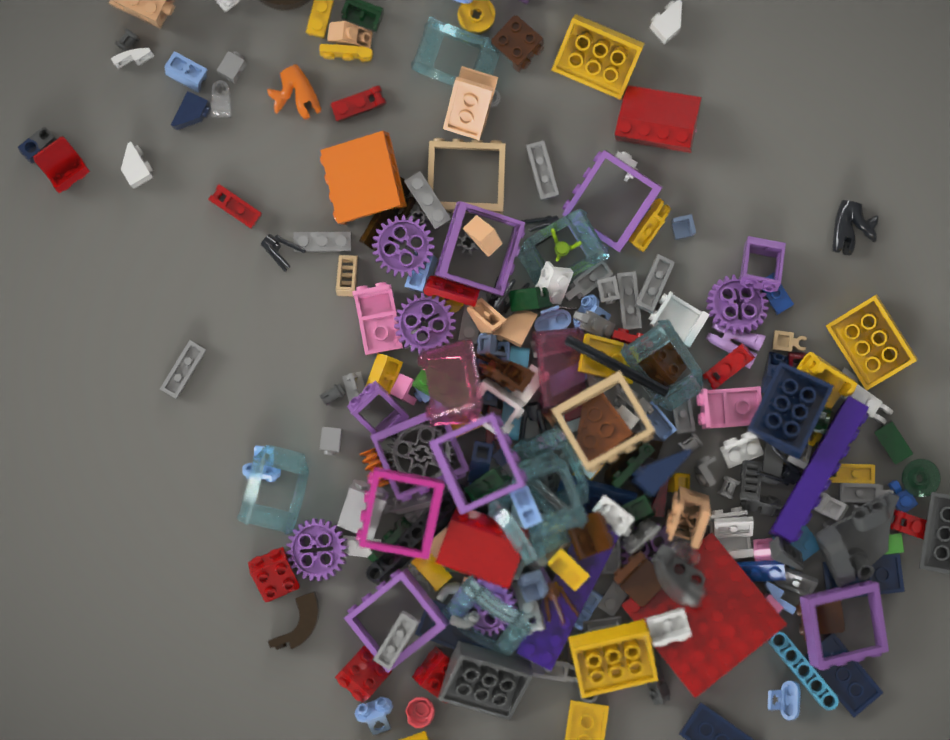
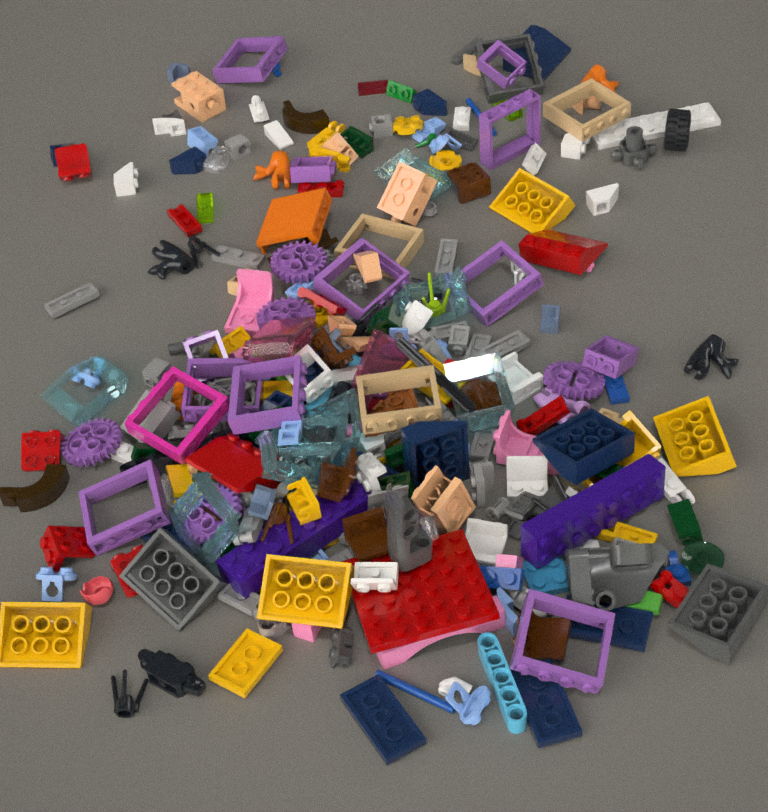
camera: 30 degrees right, 40 degrees down
(247, 180) = (205, 207): none -> clear neon green slope
(266, 28) = (277, 135): none -> white slope
(269, 274) = (172, 258): none -> black piece
(335, 70) = (312, 169): none -> medium lavender window
(396, 640) = (111, 512): light grey plate -> none
(427, 200) = (336, 240): light grey plate -> none
(466, 621) = (184, 516): light grey arm -> none
(650, 225) = (518, 312): yellow hinge -> none
(733, 527) = (487, 535): white plate -> none
(733, 702) = (415, 691): none -> blue bar
(765, 685) = (446, 684): none -> white arm
(786, 553) = (526, 559): dark grey slope -> none

